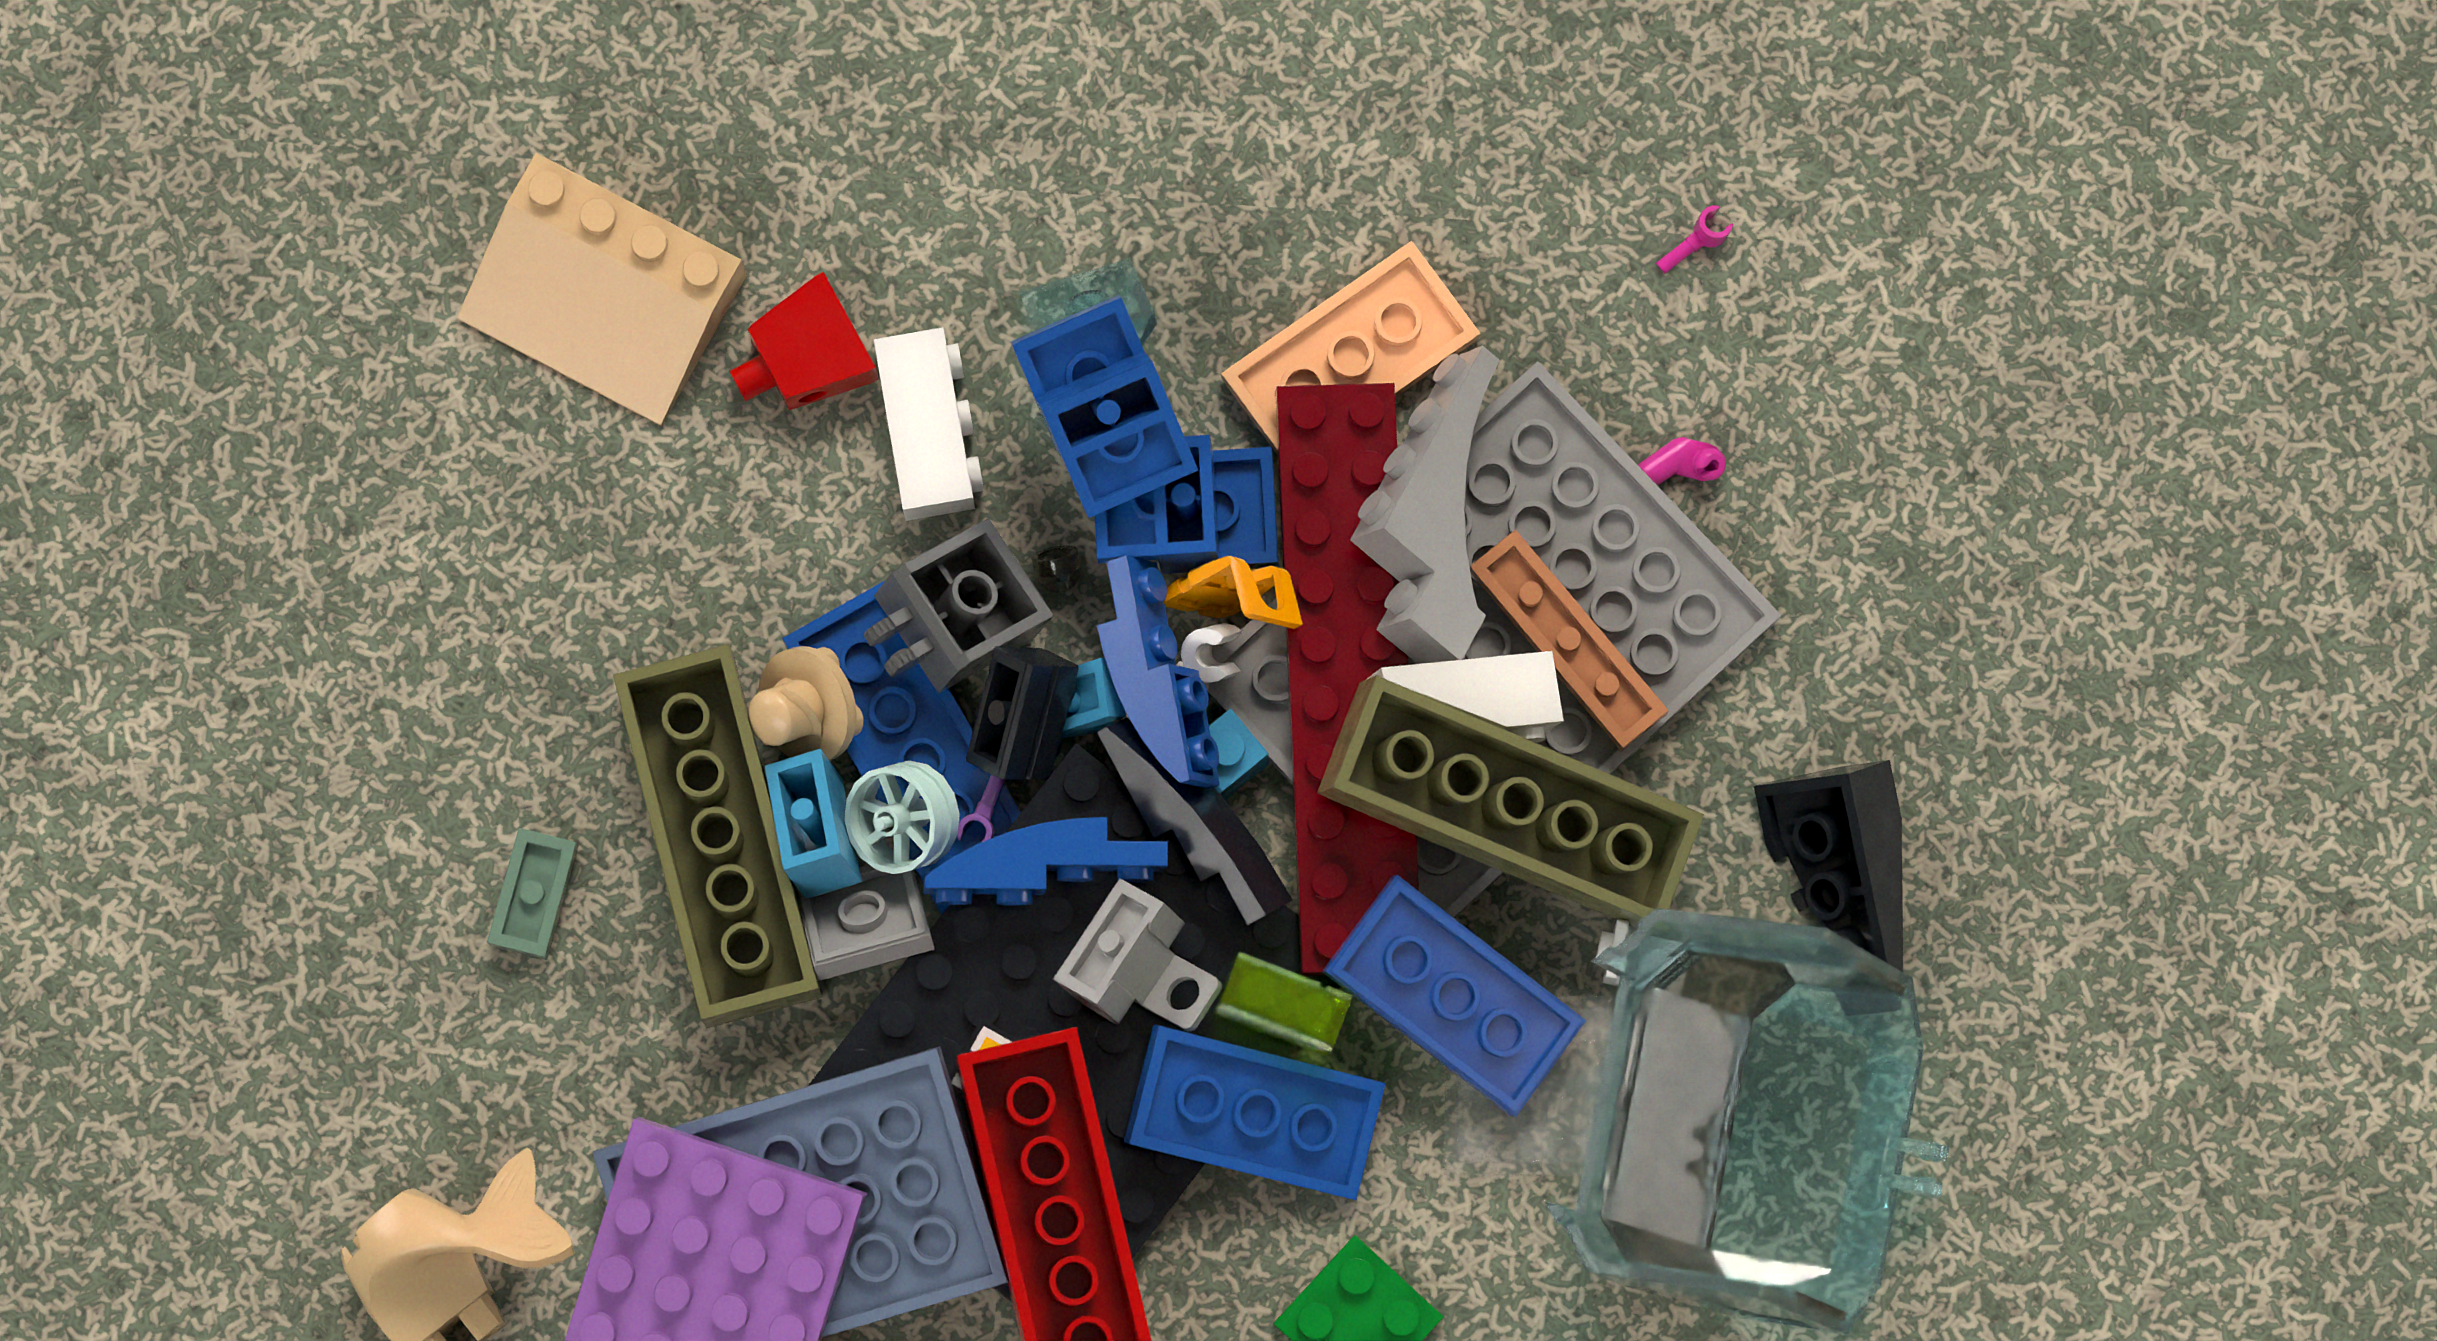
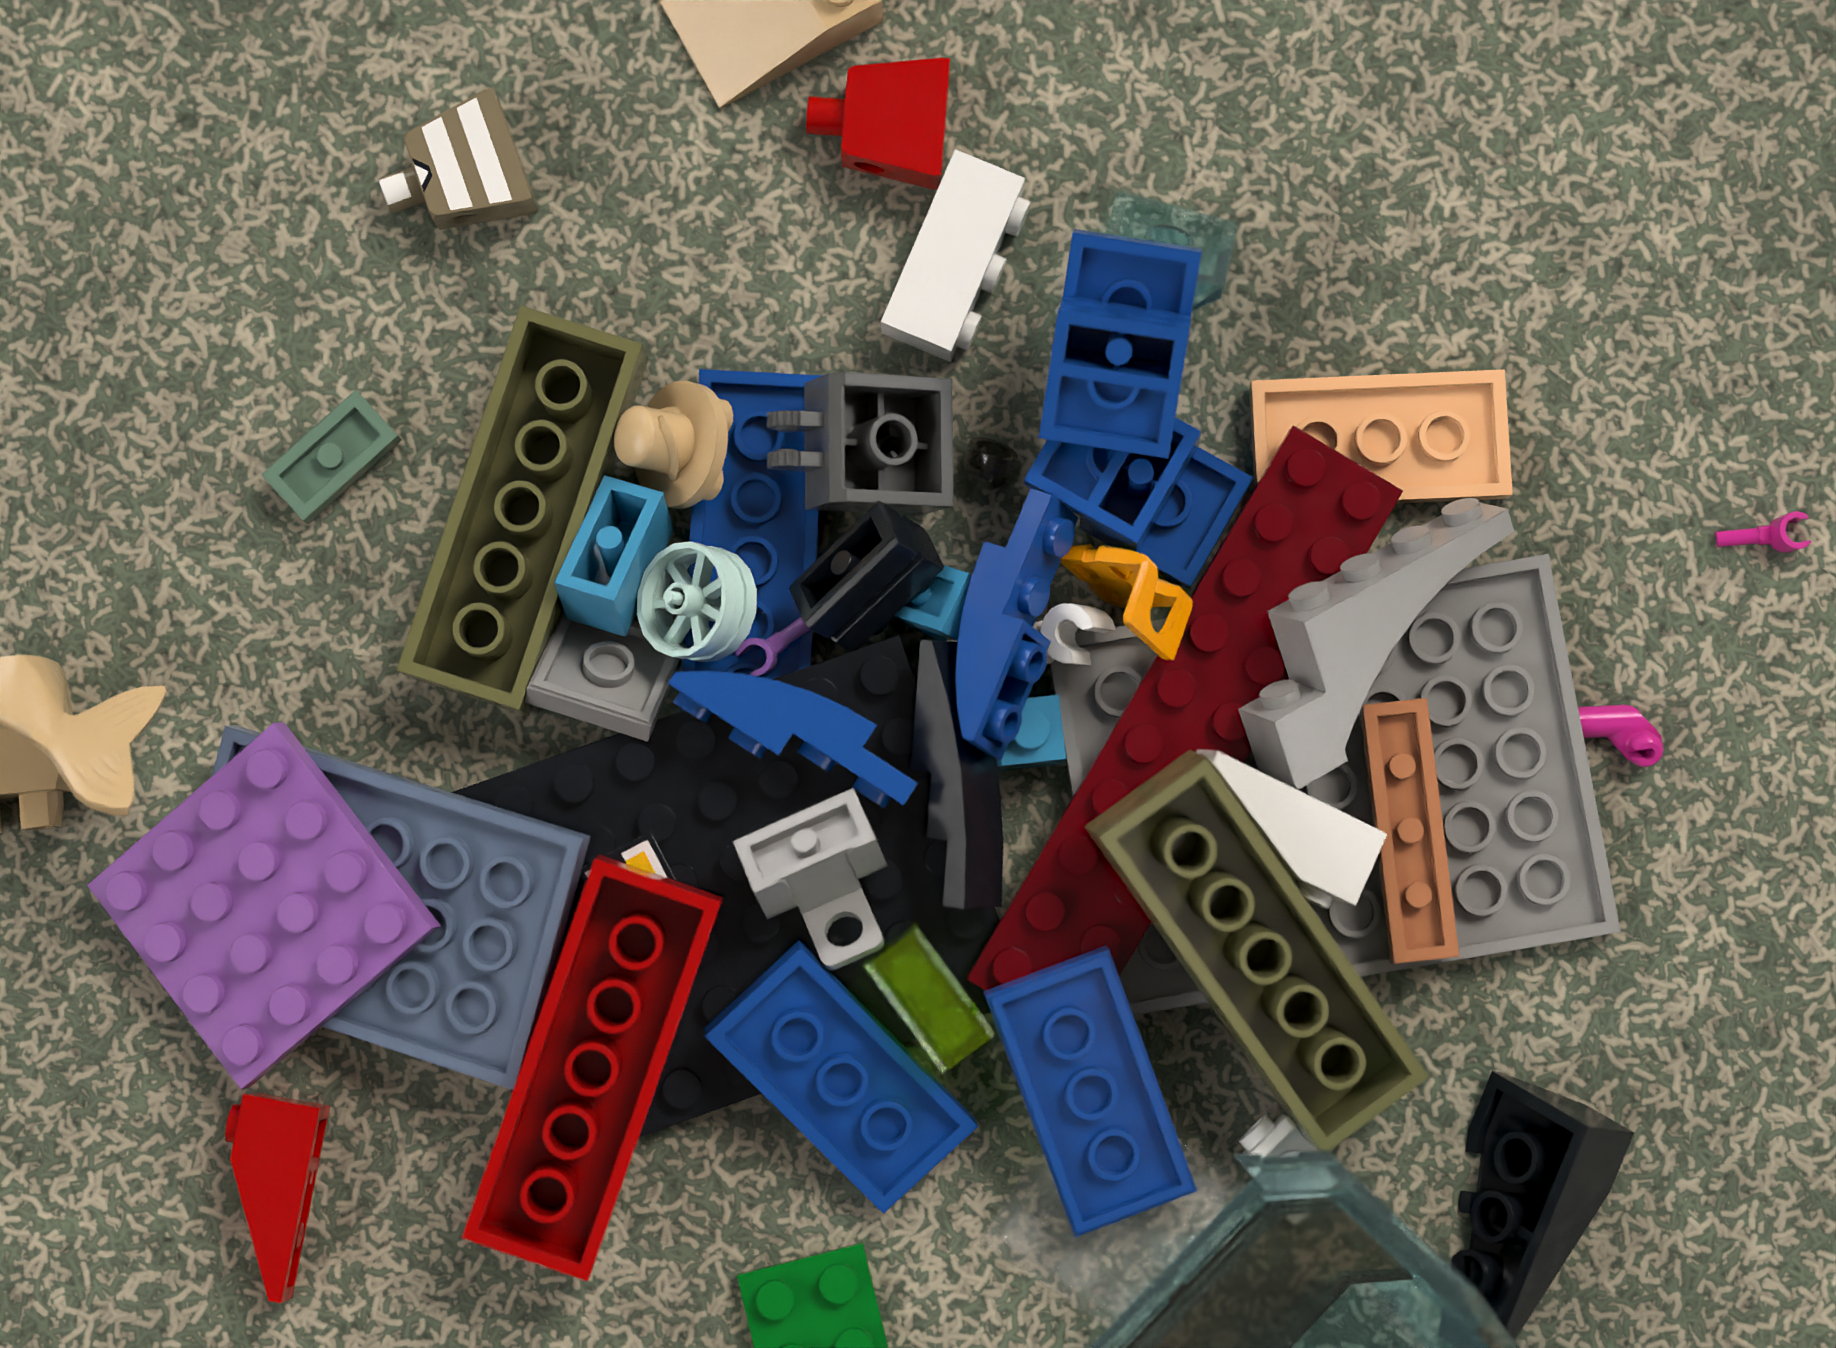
camera: 35 degrees right, 5 degrees up
(490, 599) = (463, 167): none -> dark tan torso

